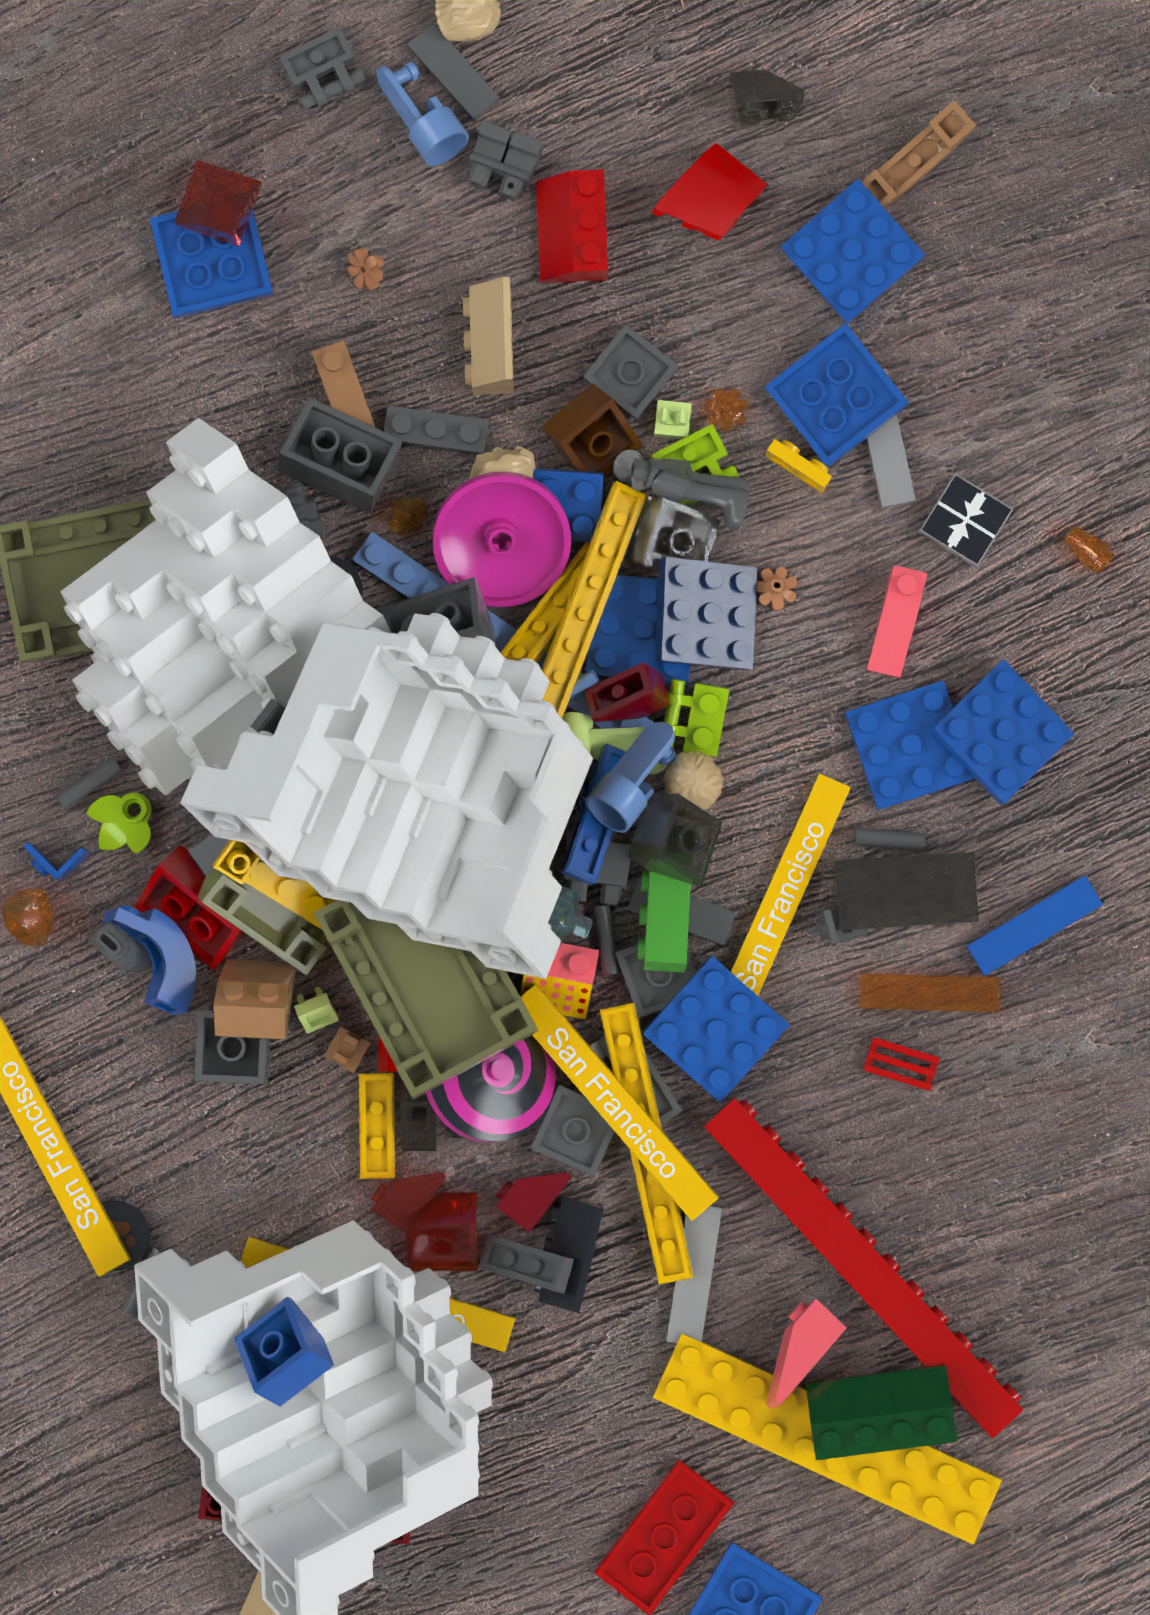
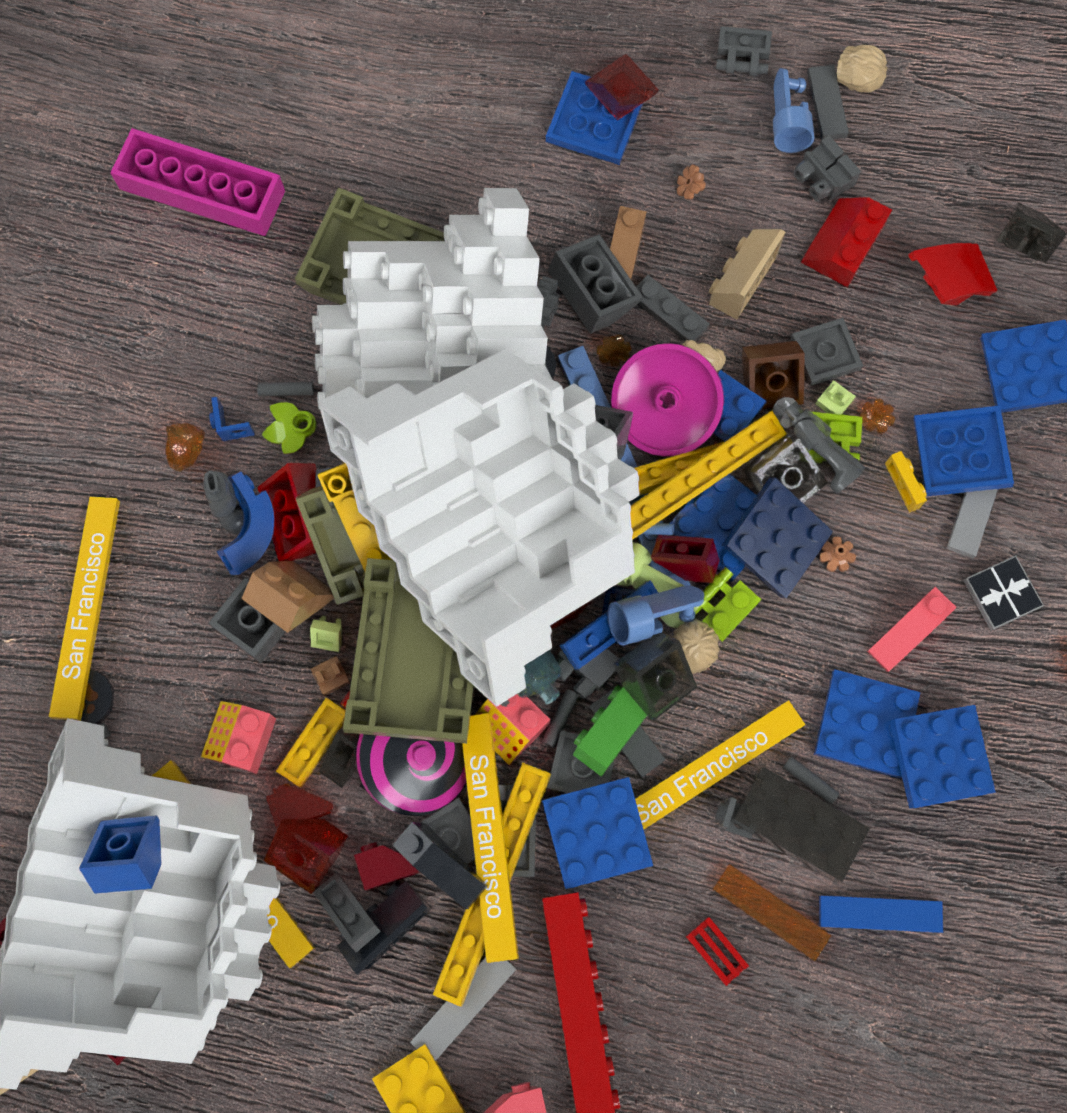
camera: 35 degrees right, 10 degrees down
(298, 1170) = (239, 736): none -> coral slope
(585, 1159) = (440, 863): none -> black slope

